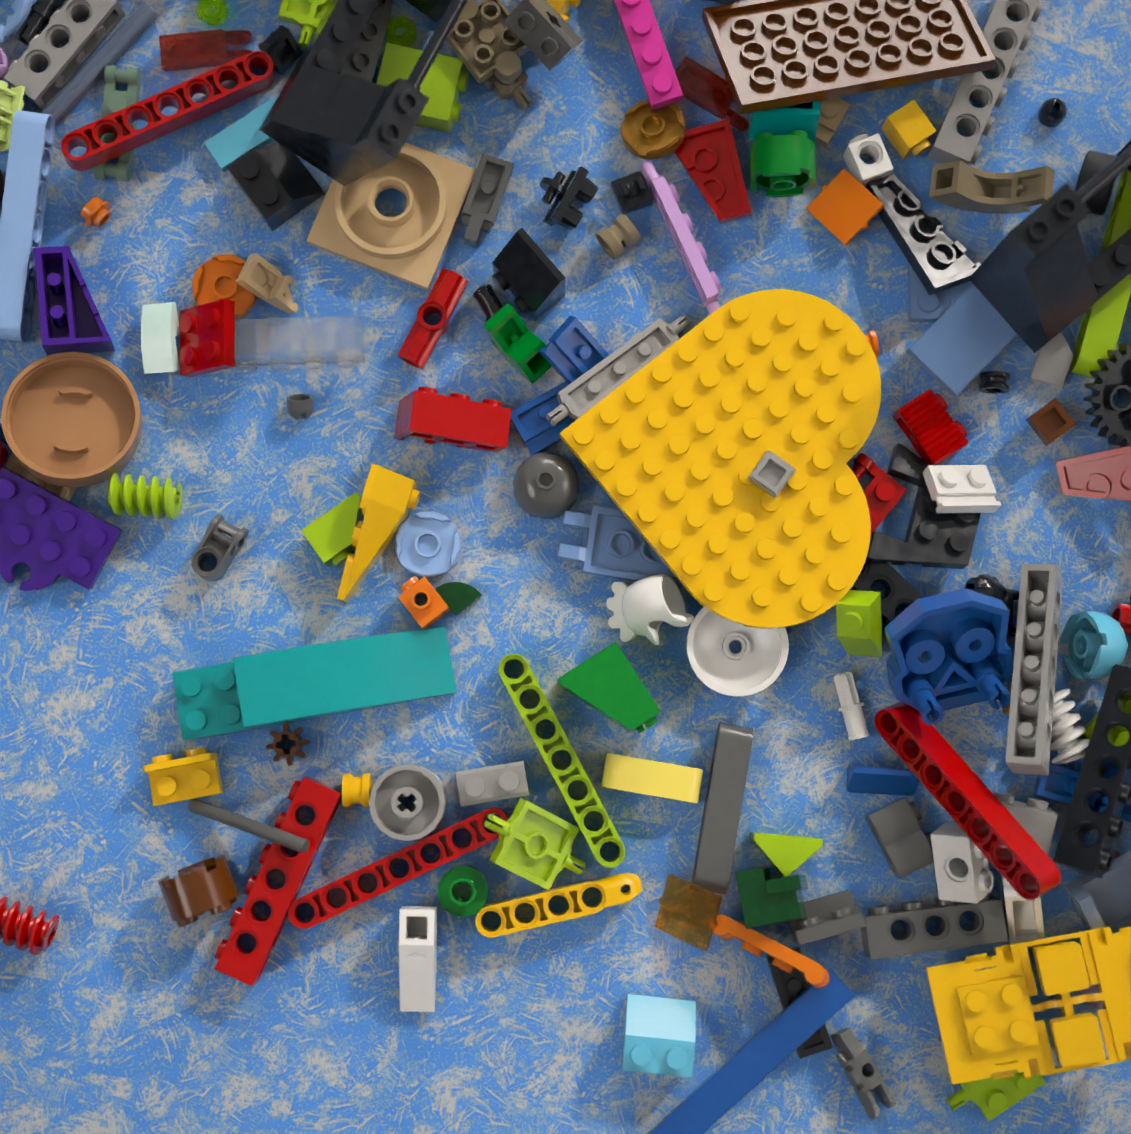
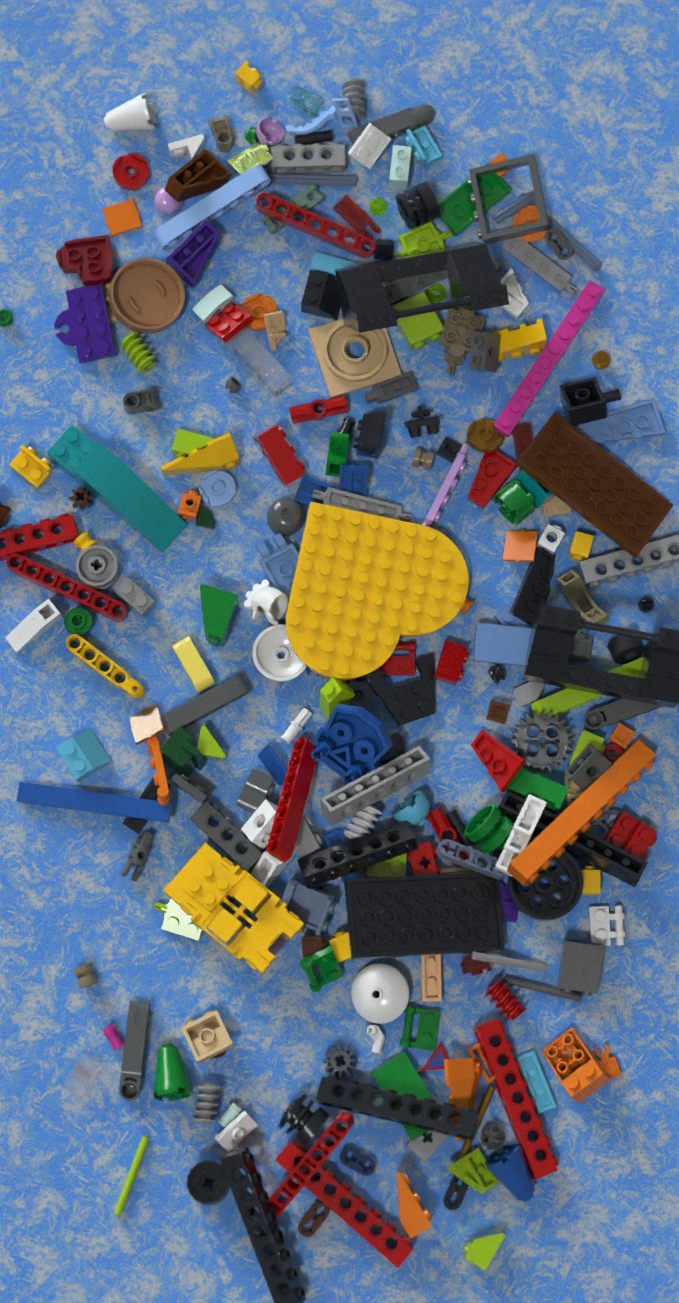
camera: 50 degrees right, 5 degrees down
(96, 212) = (245, 232): orange plate -> none
(249, 825) = (32, 508): dark grey bar -> none
(534, 844) = (122, 634): lime plate -> none
(564, 777) = (169, 628): lime beam -> none
(771, 474) = (366, 604): light grey tile -> none
(961, 488) = (433, 696): white plate -> none

